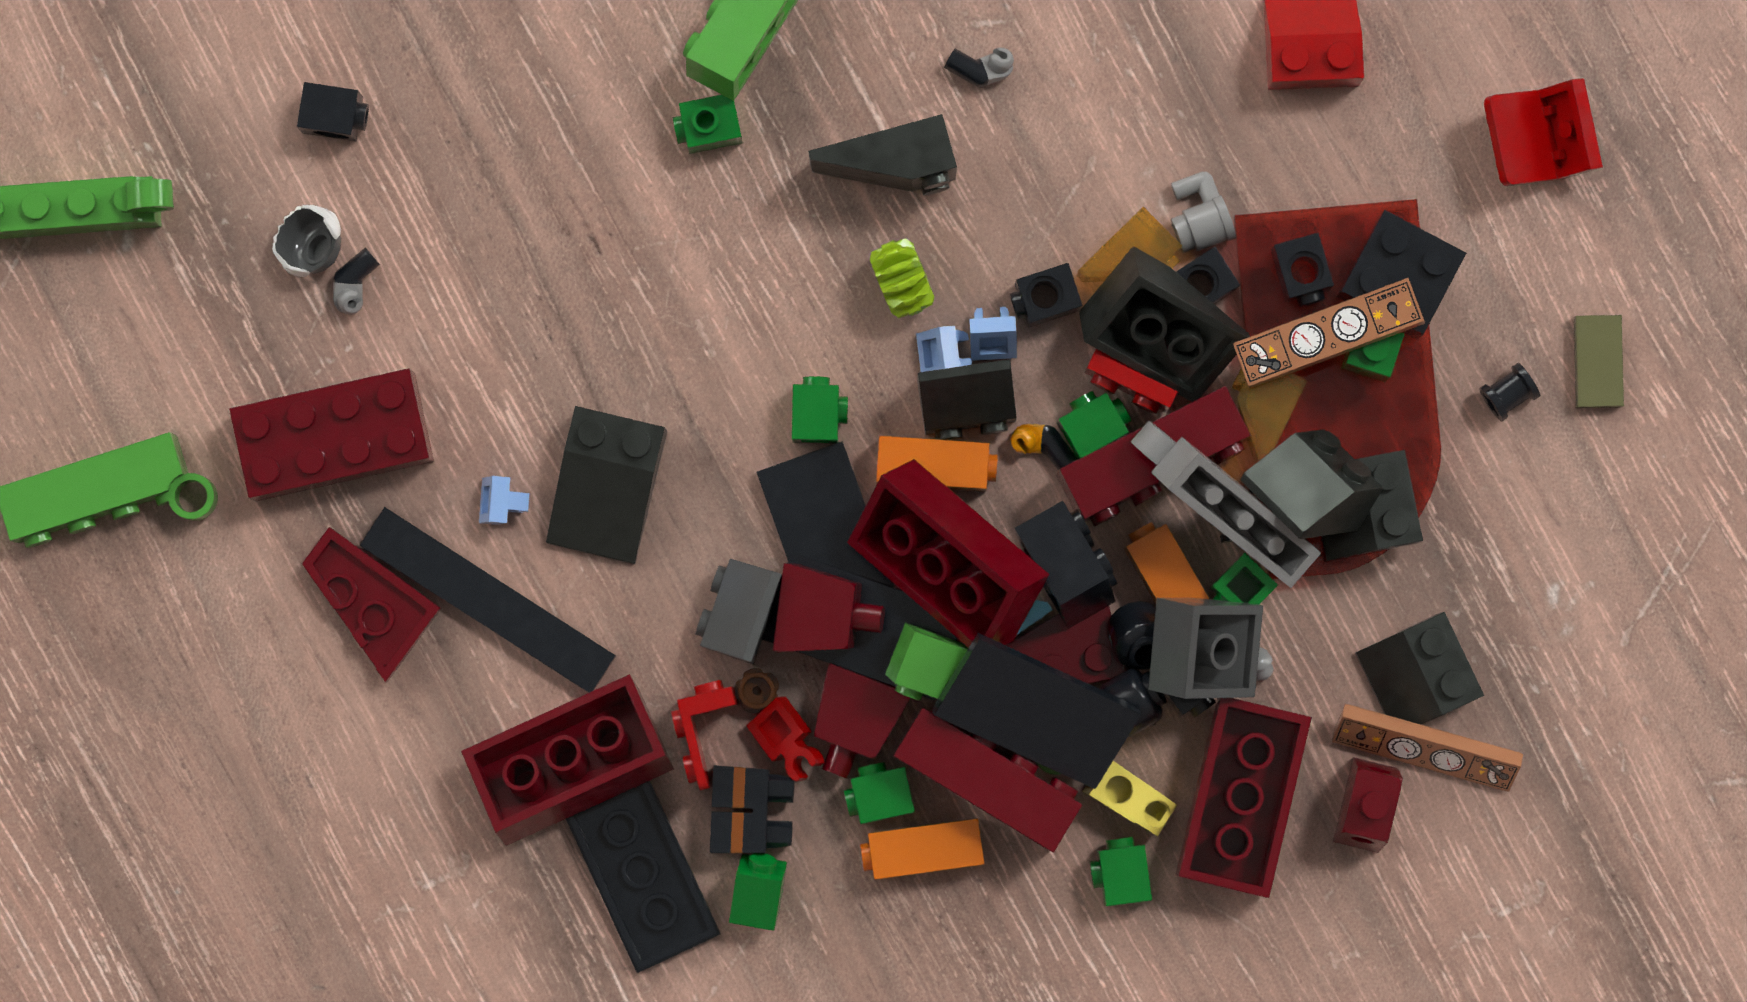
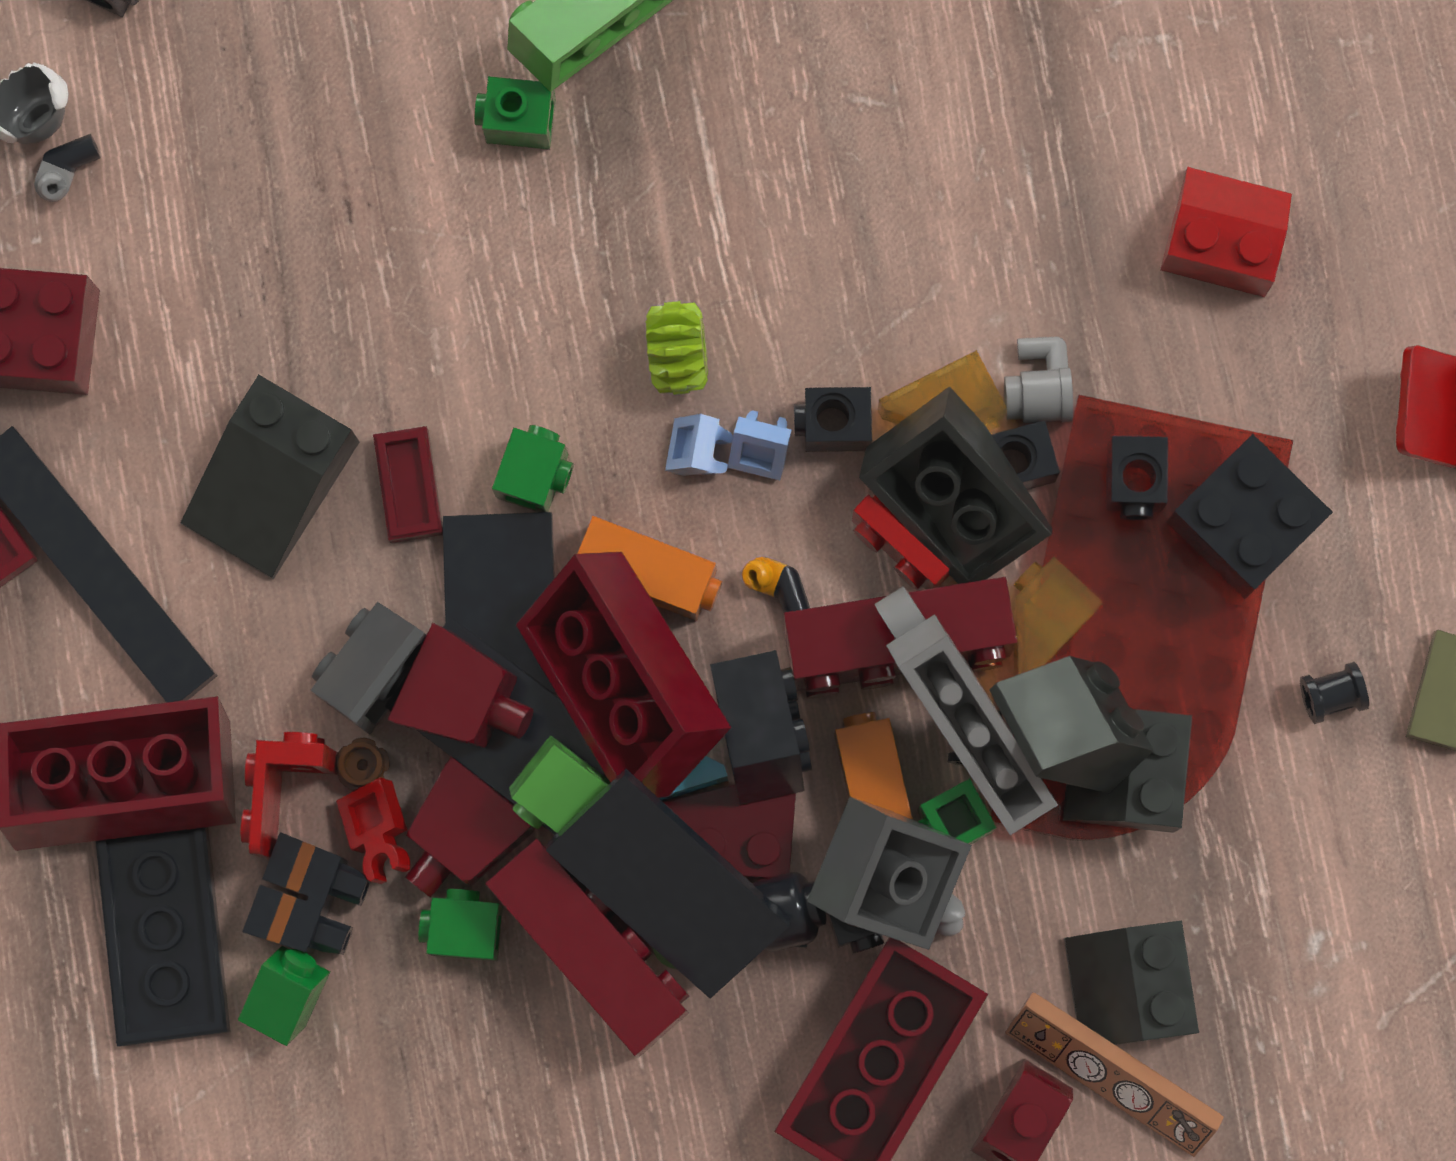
camera: 20 degrees right, 5 degrees down
(498, 500) = (142, 458): light blue tile -> none
(719, 454) = (408, 484): none -> dark red tile
(899, 157) = (713, 209): pearl dark grey slope -> none
(923, 849) = (491, 1006): orange brick -> none
(967, 399) = (706, 504): pearl dark grey slope -> none
(983, 70) = (843, 150): arm -> none
(1094, 423) = (843, 575): green brick -> none
(1122, 872) = (712, 1107): green brick -> none
(1131, 634) = (809, 832): black head -> none
(1132, 799) = (751, 1025): light yellow leg -> none
(1329, 333) = (1145, 553): tile -> none
(1374, 359) = (1191, 591): green brick -> none

